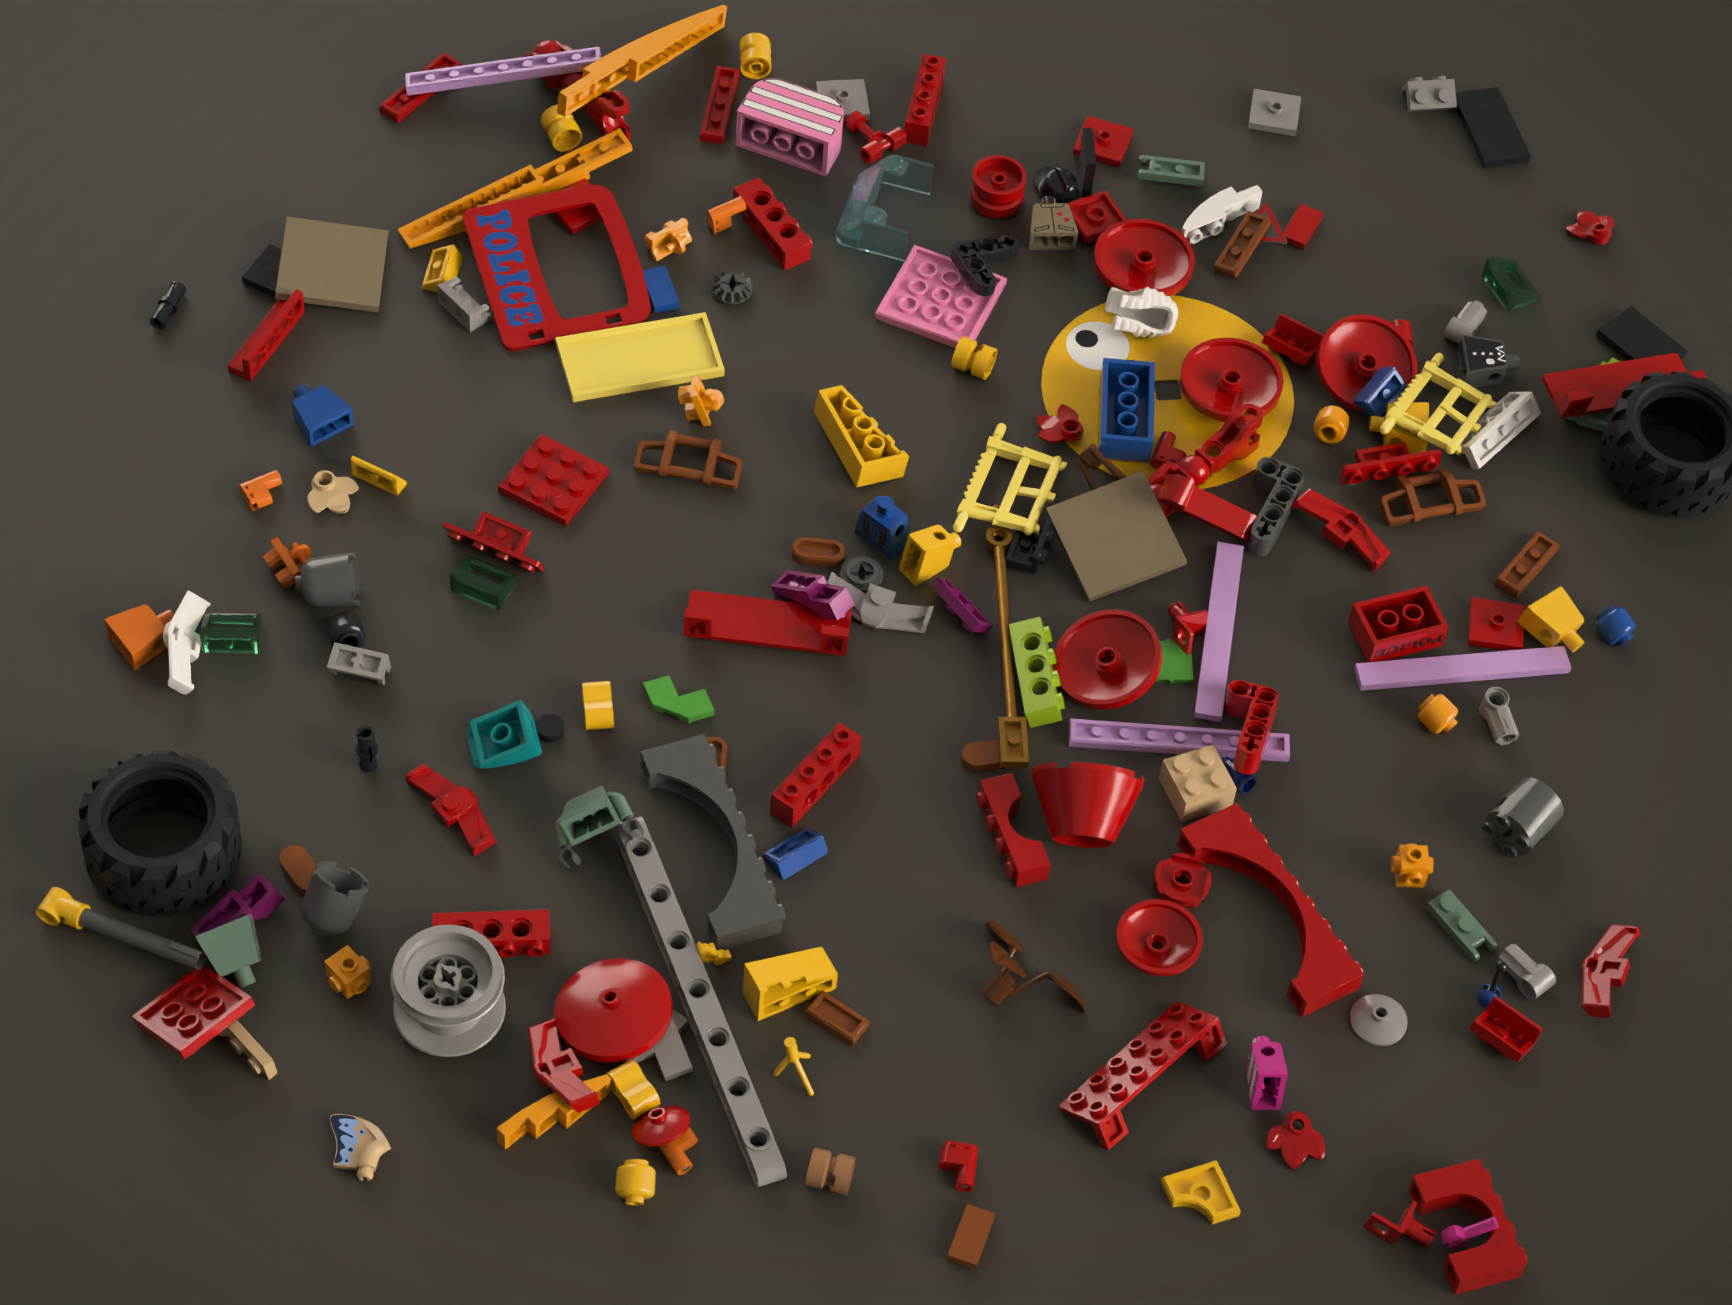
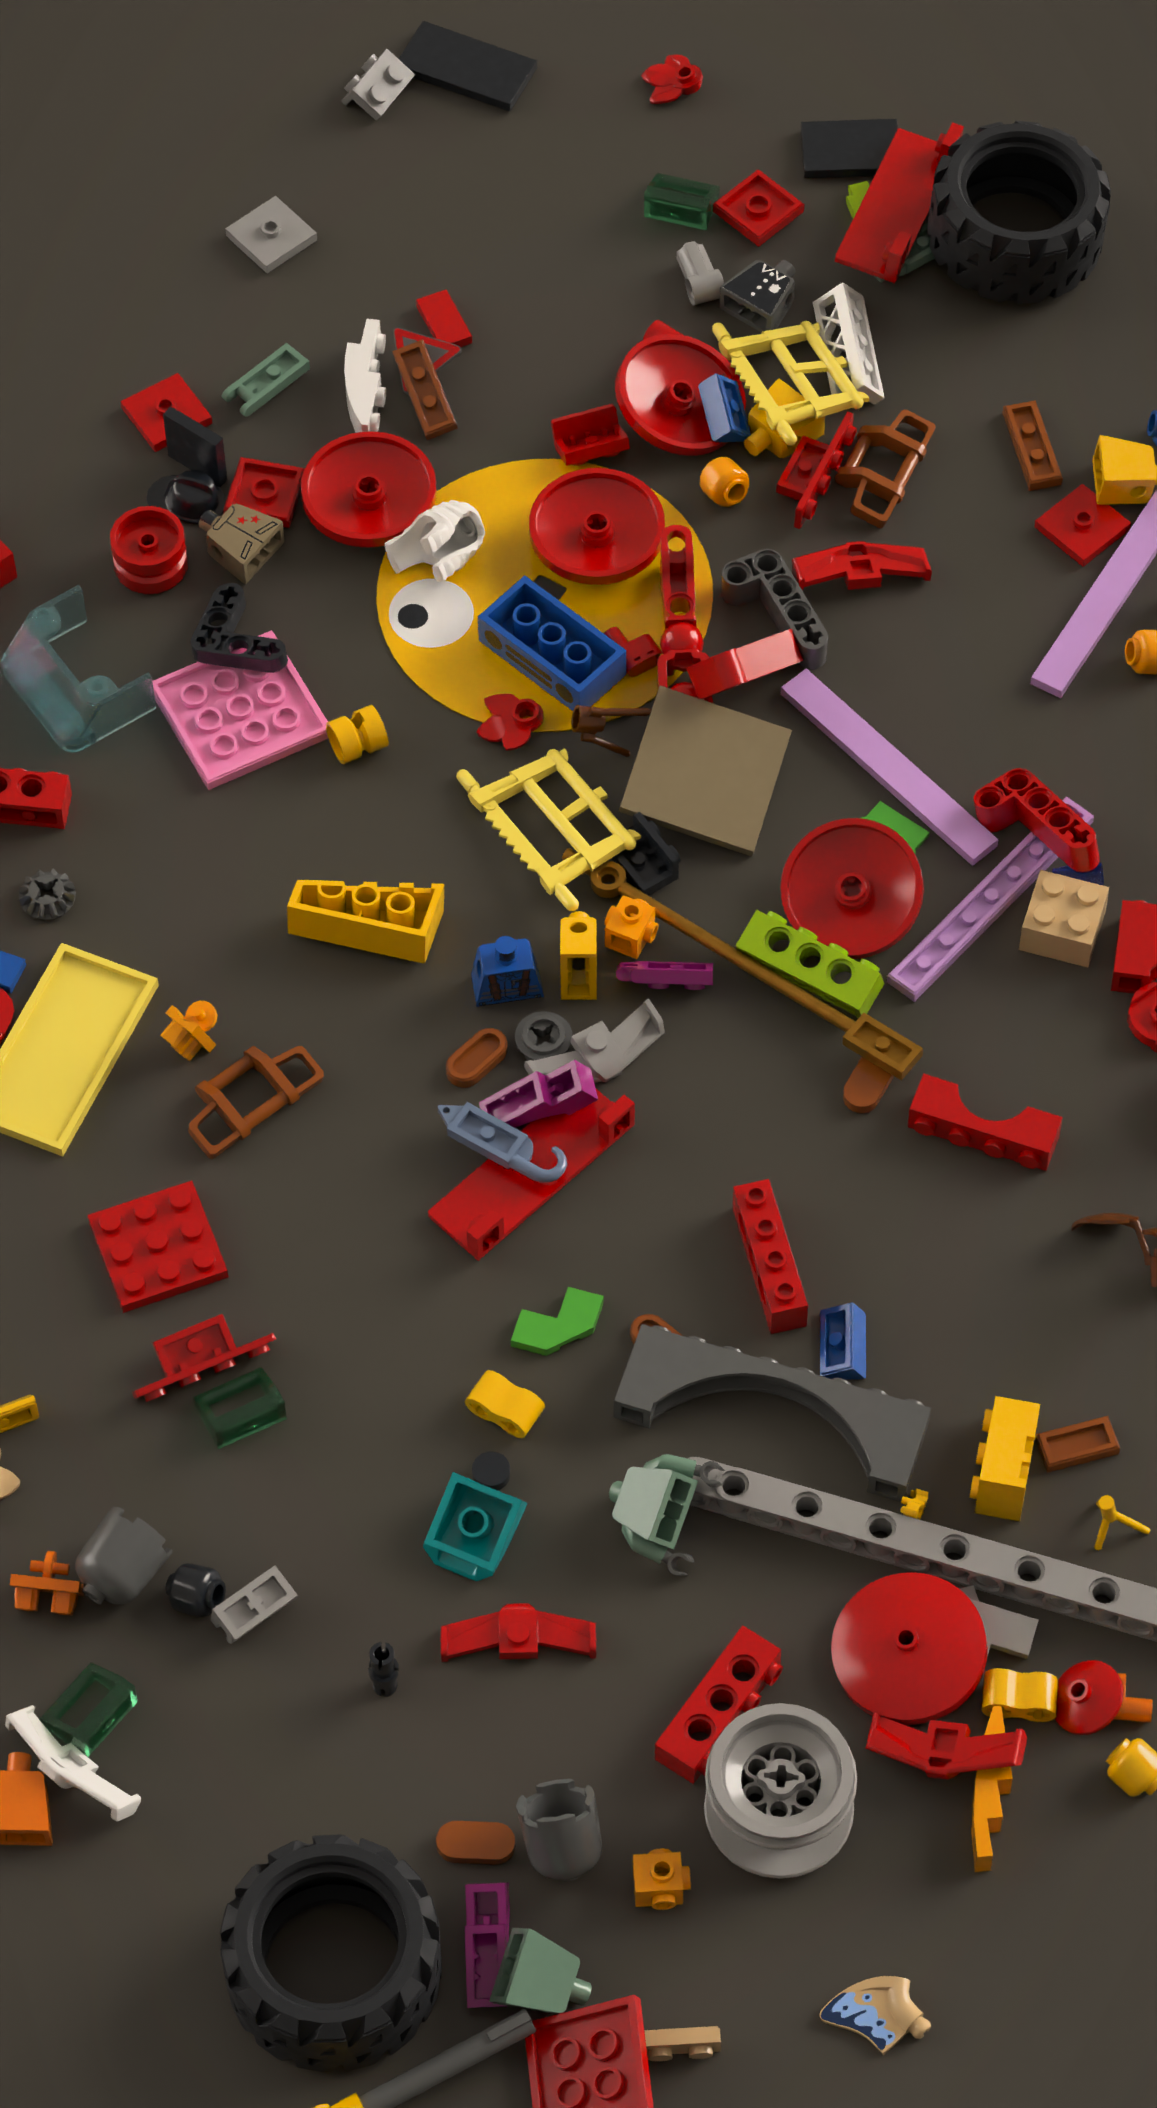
camera: 45 degrees left, 5 degrees up
(765, 592) = (498, 1141): none -> sand blue plate
(974, 566) = (630, 926): none -> light orange brick
(1086, 801) = (1026, 1033): red cone -> none
(1186, 625) = (864, 788): red bracket -> none
(1397, 624) = (1022, 606): red brick -> none
(1546, 323) = (758, 207): none -> red plate

